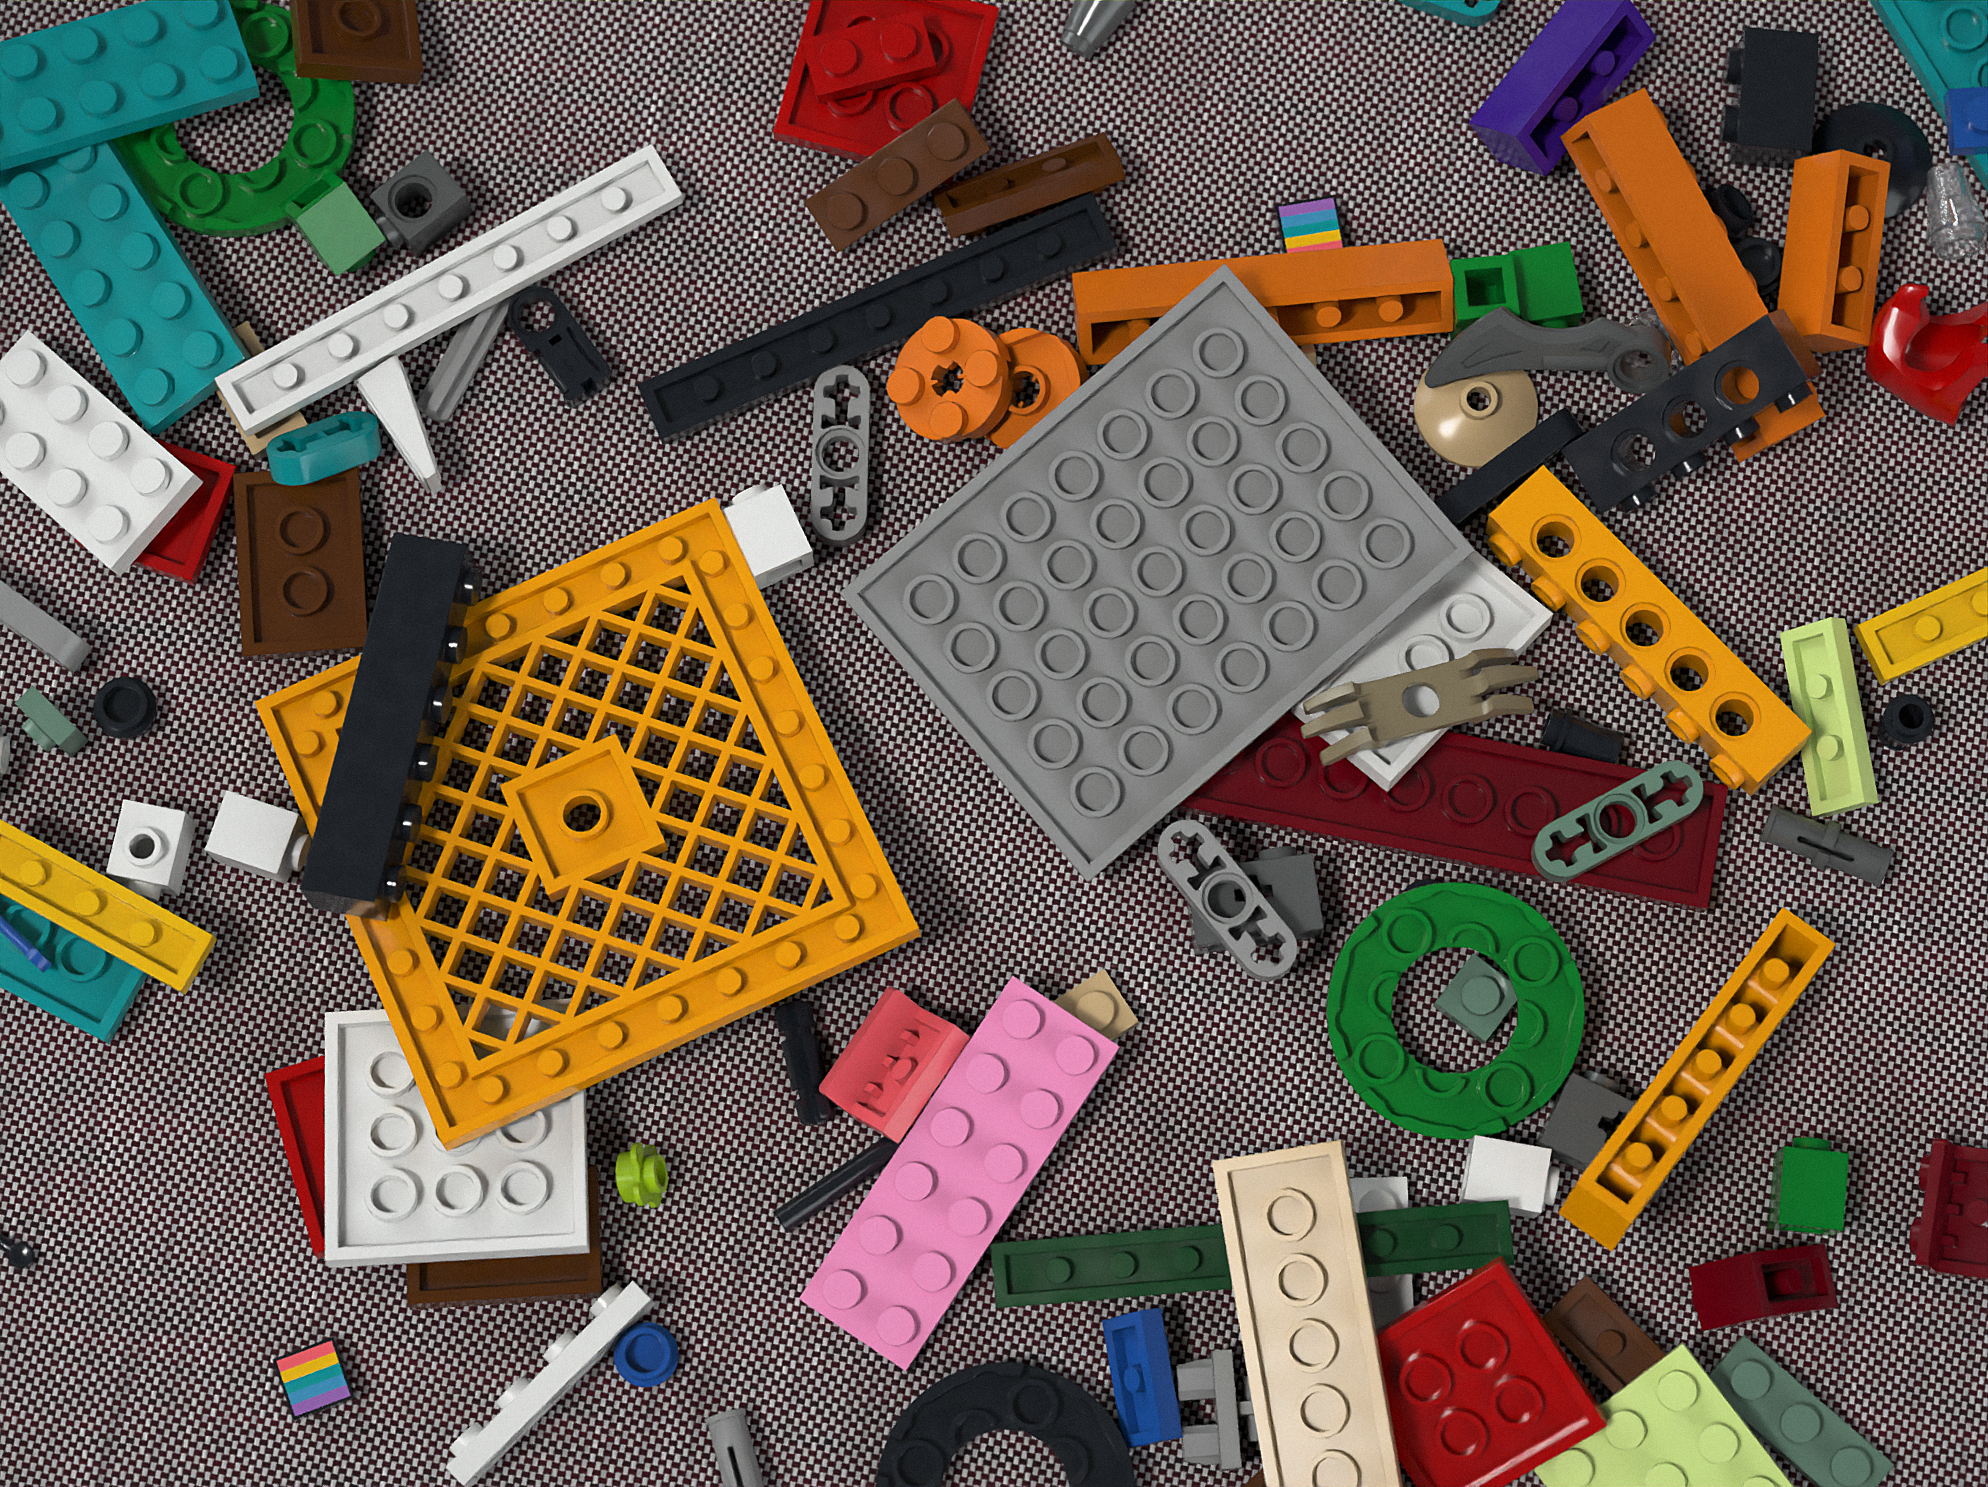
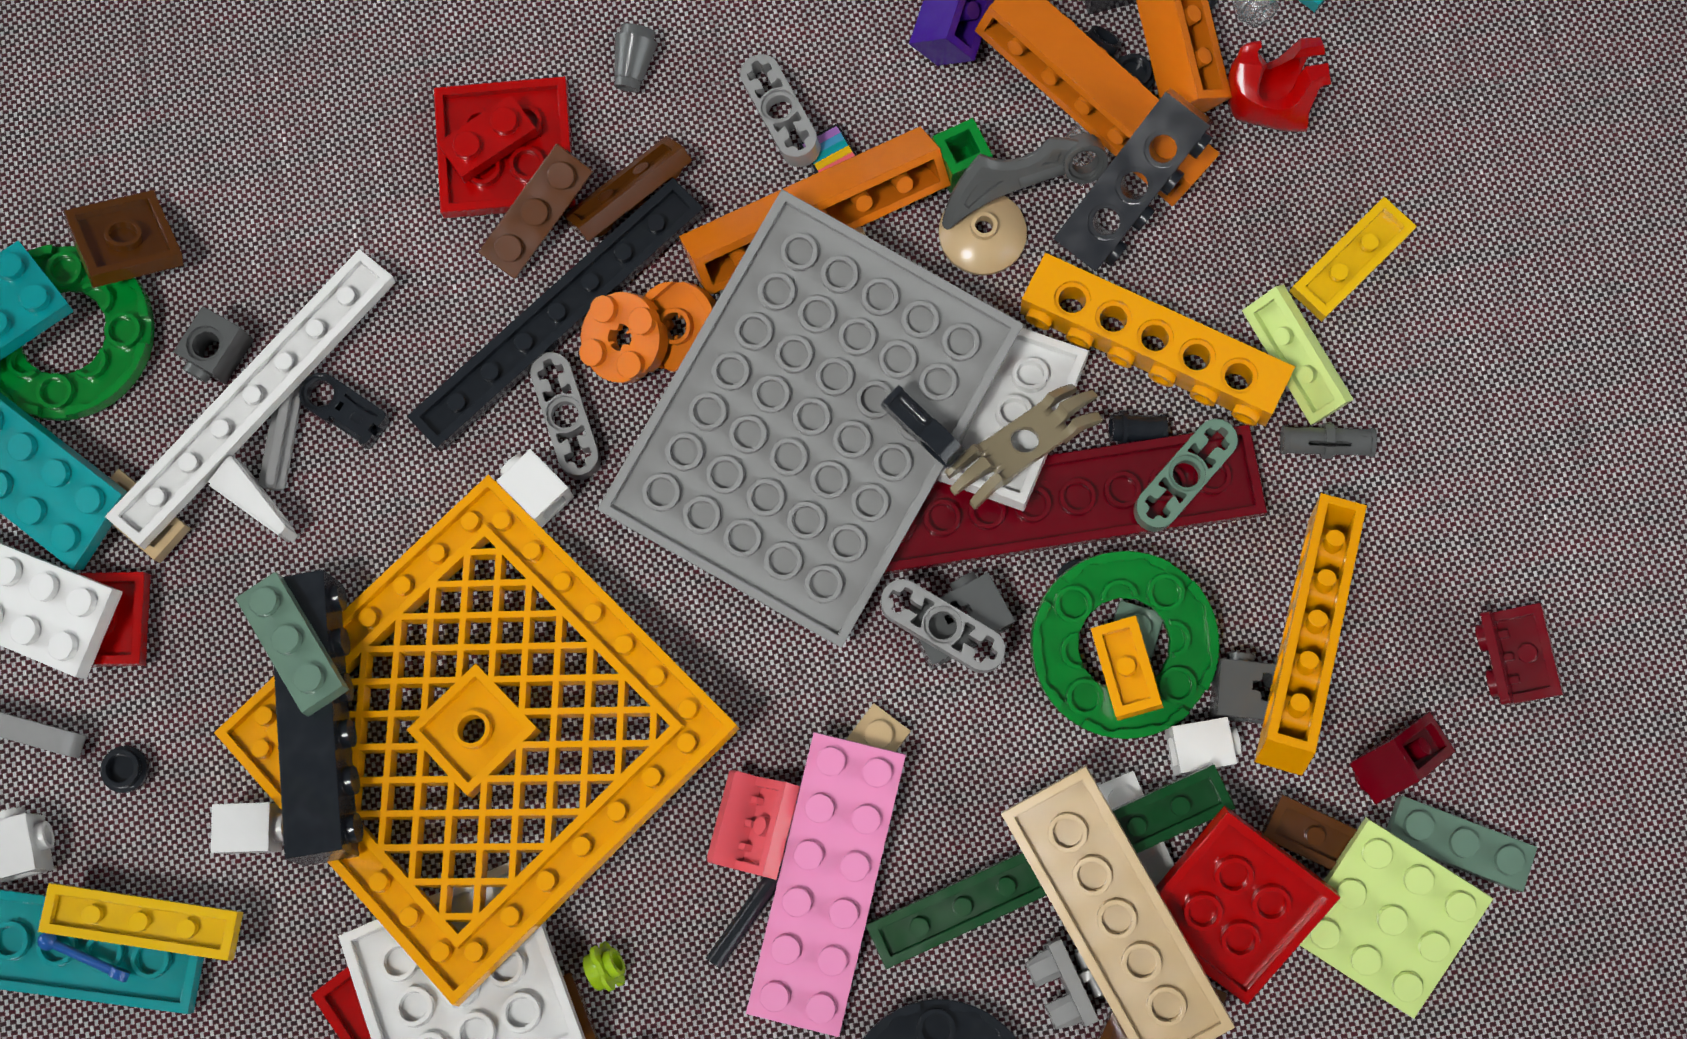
camera: 20 degrees left, 0 degrees up
(48, 724) = (72, 801): sand green plate -> none
(151, 849) = (175, 864): white brick -> none
(301, 566) = (206, 623): reddish brown plate -> none
(324, 448) = (202, 537): teal beam -> none
(333, 223) = (156, 380): green brick -> none
(397, 625) = (292, 644): none -> sand green plate
(804, 1062) = (690, 844): black axle -> none
(1142, 1378) = (1005, 981): blue plate -> none
(1282, 170) = (779, 128): none -> light grey beam
(1293, 636) = (923, 427): none -> black piece
(1444, 1040) = (1126, 668): none -> light orange plate
(1510, 469) = (1024, 261): black beam -> none
(1548, 286) = (1003, 131): green brick -> none
(1808, 1188) = (1407, 678): green brick -> none
(1914, 713) = (1350, 338): black pin -> none

